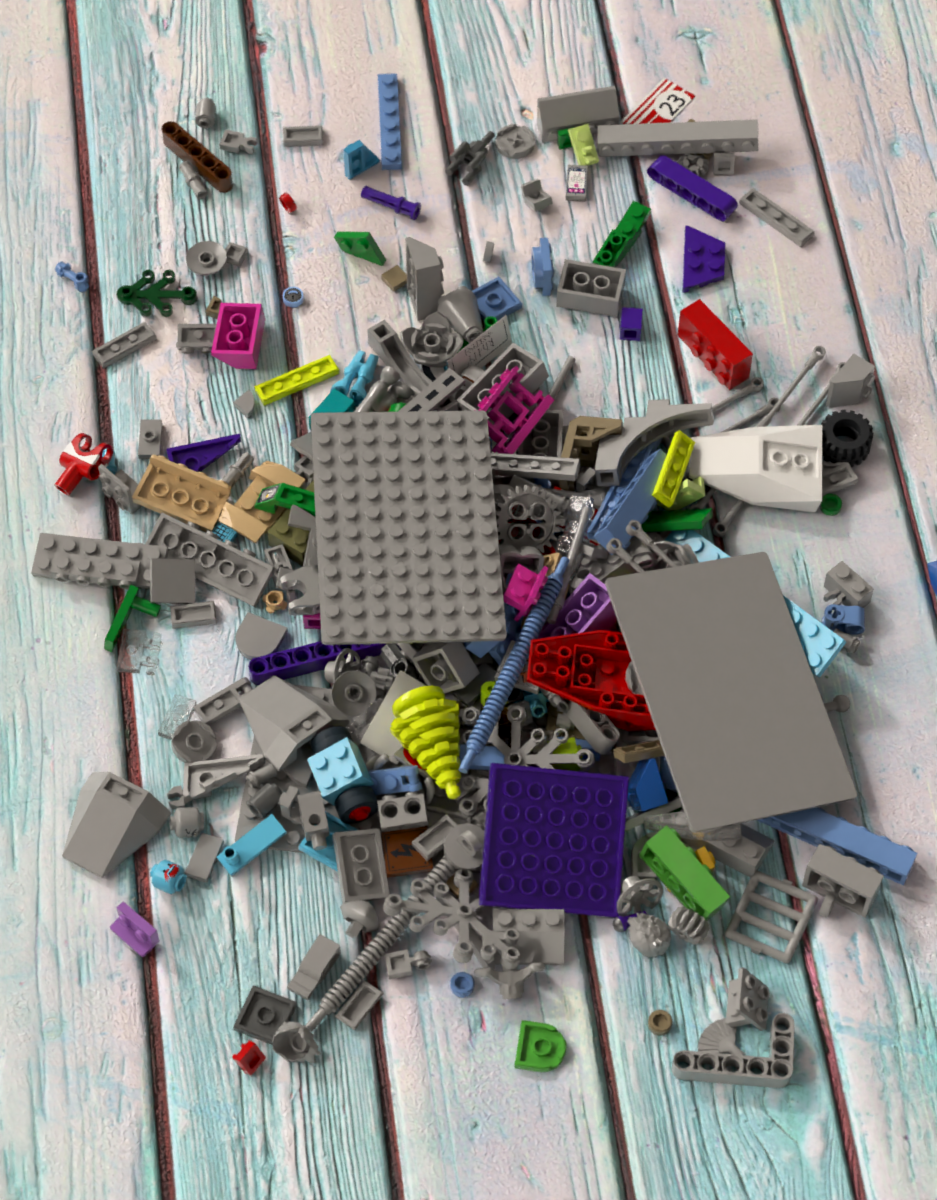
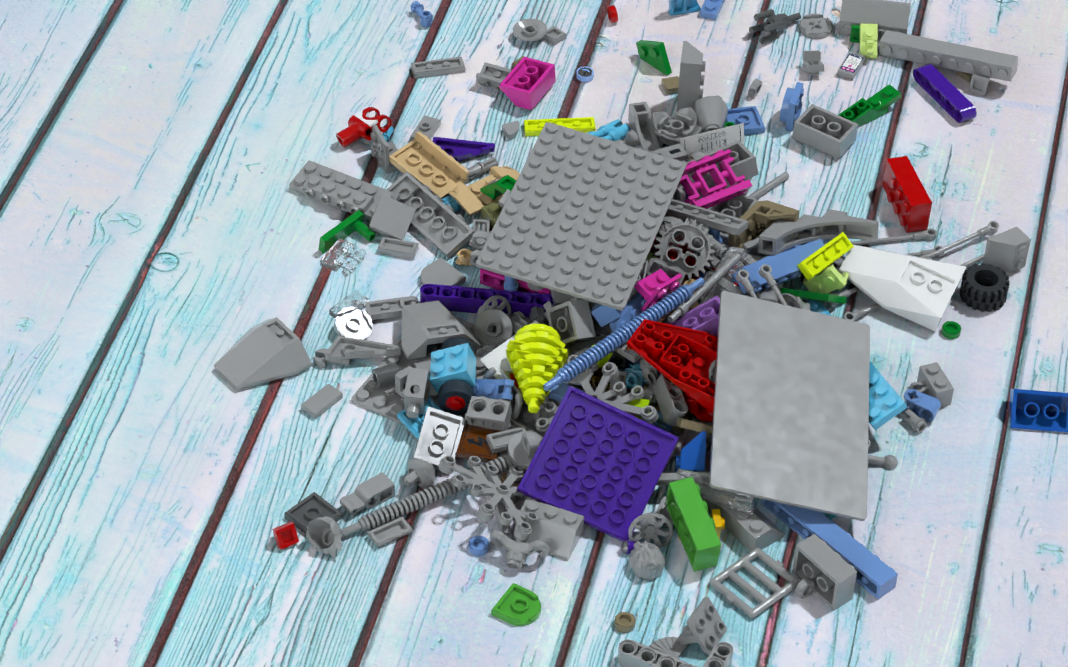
camera: 20 degrees right, 15 degrees down
(134, 930) = (242, 426): medium lavender bracket -> none
(154, 294) = (459, 38): dark green plant -> none
(168, 876) = (286, 401): medium azure head -> none
(187, 822) = (320, 372): light grey head -> none
(251, 845) = (361, 402): medium azure piece -> none
(260, 776) = (399, 359): light grey pin -> none
(399, 204) = (700, 39): dark purple pin -> none
(400, 964) = (438, 514): light grey plate -> none
(631, 324) = (846, 165): dark purple brick -> none
(659, 104) = (954, 32): sticker -> none
(688, 925) = (681, 561): light grey gear -> none
(702, 164) = (956, 78): light grey gear -> none
(702, 259) = (929, 141): dark purple wing -> none
(776, 217) = (1006, 132): light grey tile -> none
(837, 477) = (962, 312): light grey wing -> none

